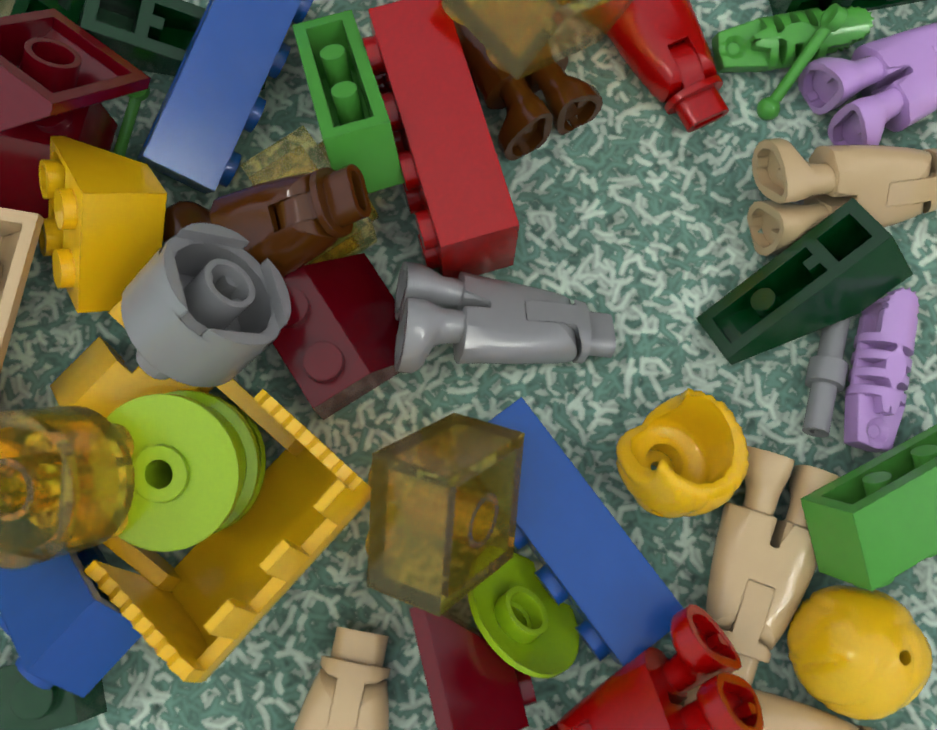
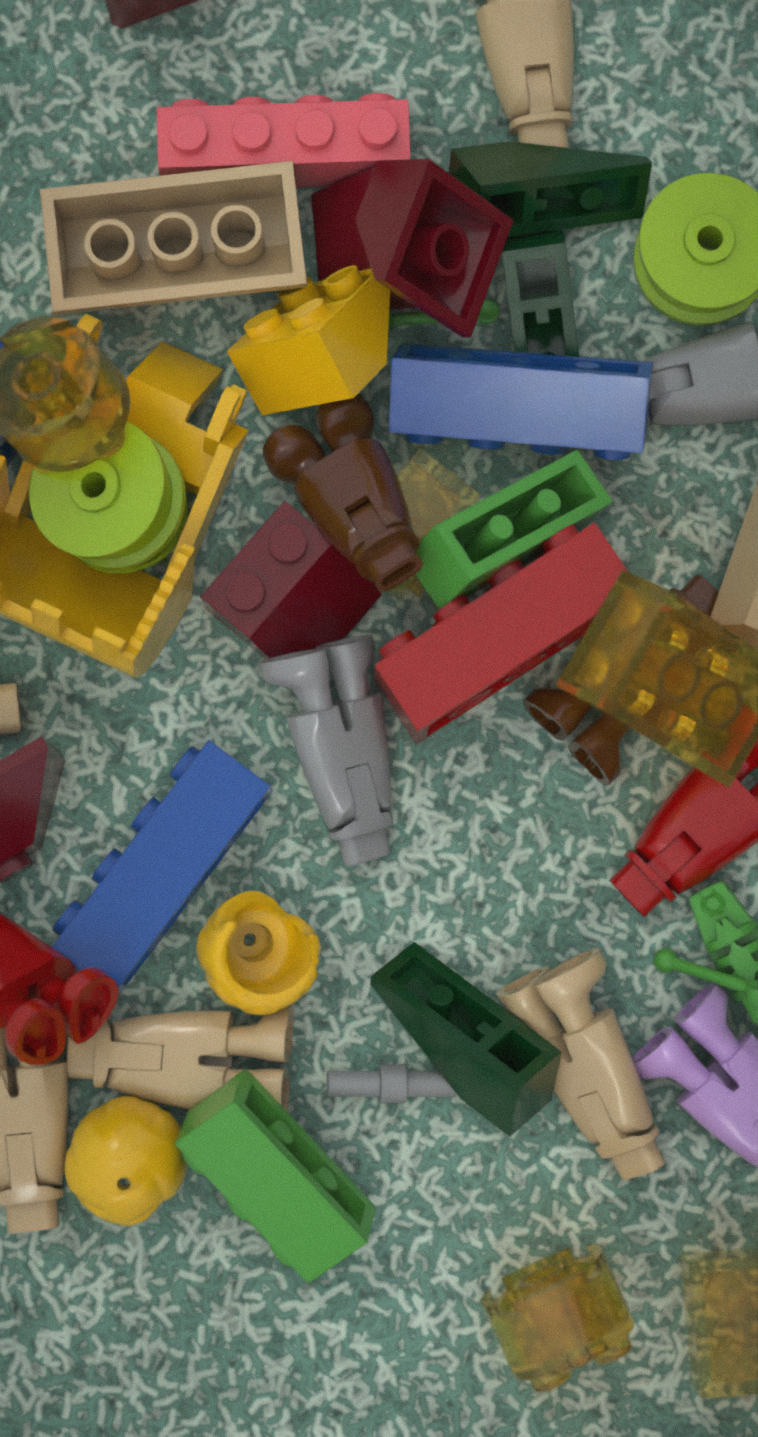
camera: 75 degrees right, 5 degrees up
(203, 307) = (252, 473): light grey brick -> none
(443, 510) = (138, 743): clear yellow brick -> none
(524, 620) = (69, 843): lime dish -> none
(880, 371) = (407, 1134): lavender hinge -> none

